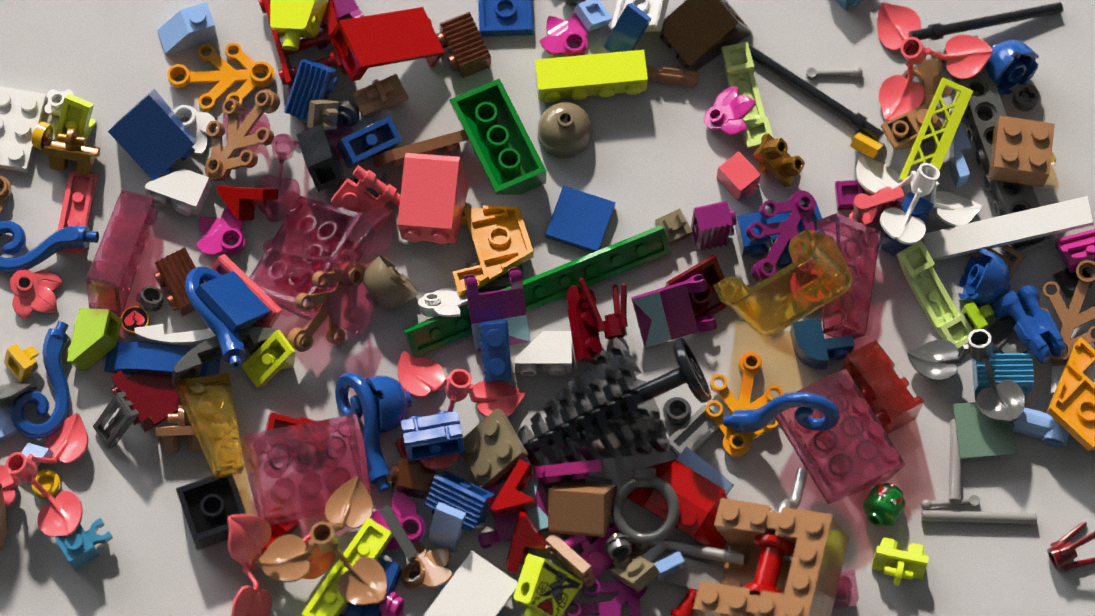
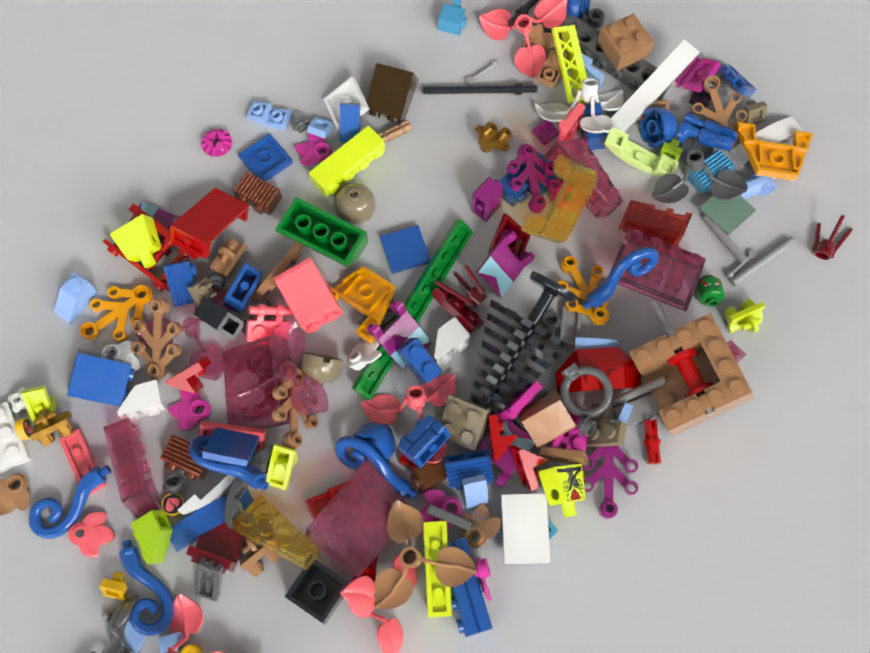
camera: 35 degrees left, 0 degrees up
(675, 226) = (464, 213): dark tan tile -> none
(731, 109) = (445, 128): dark pink plate -> none
(739, 176) = (478, 162): coral brick -> none
(740, 74) = (443, 116): yellowish green slope -> none
(813, 348) = (596, 229): blue brick -> none
(866, 145) = (534, 98): yellow tile -> none

